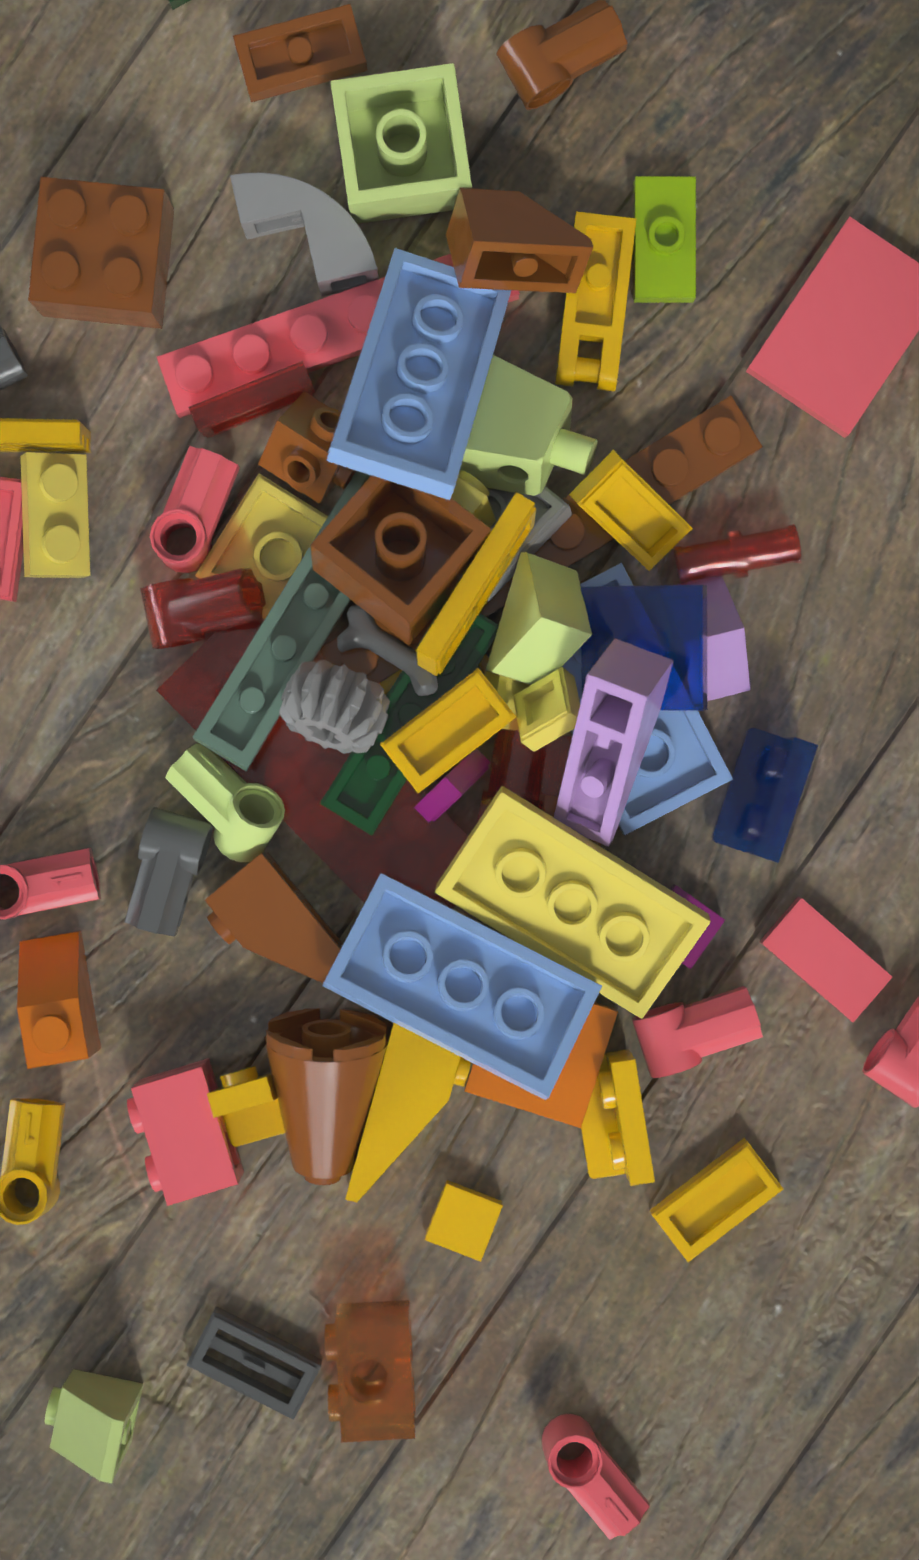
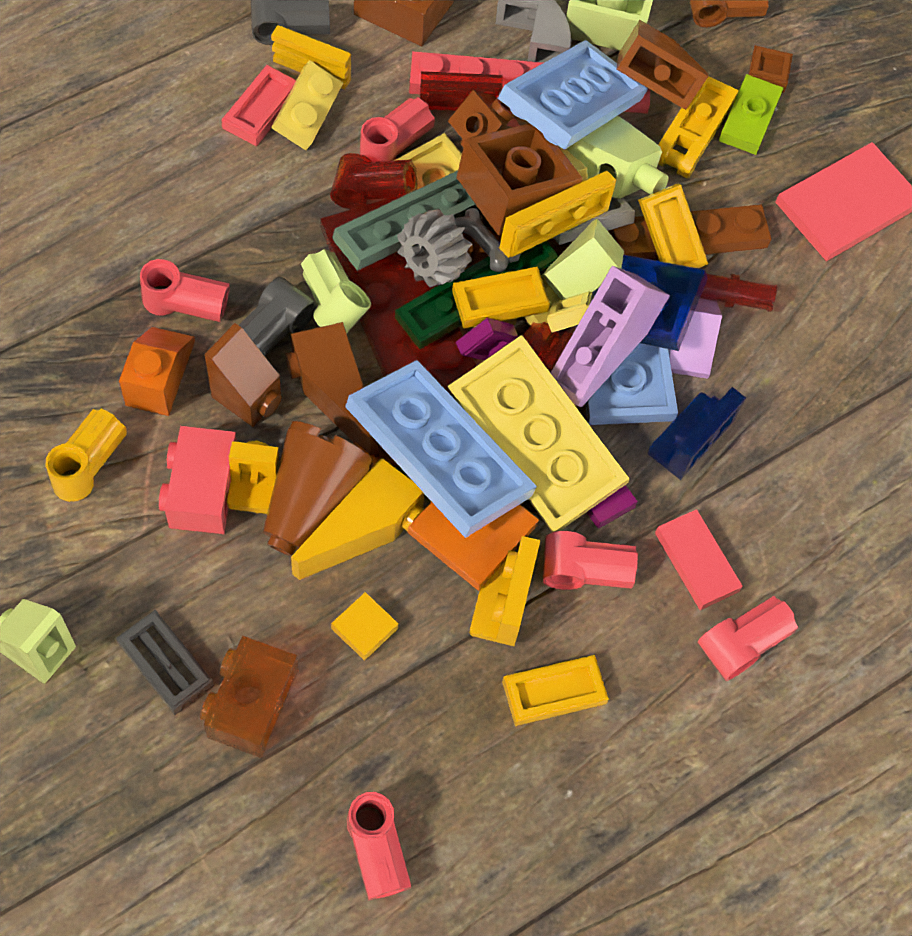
camera: 15 degrees right, 25 degrees down
(175, 985) = (242, 377): none -> slope
(663, 143) = (770, 66): none -> dark orange tile

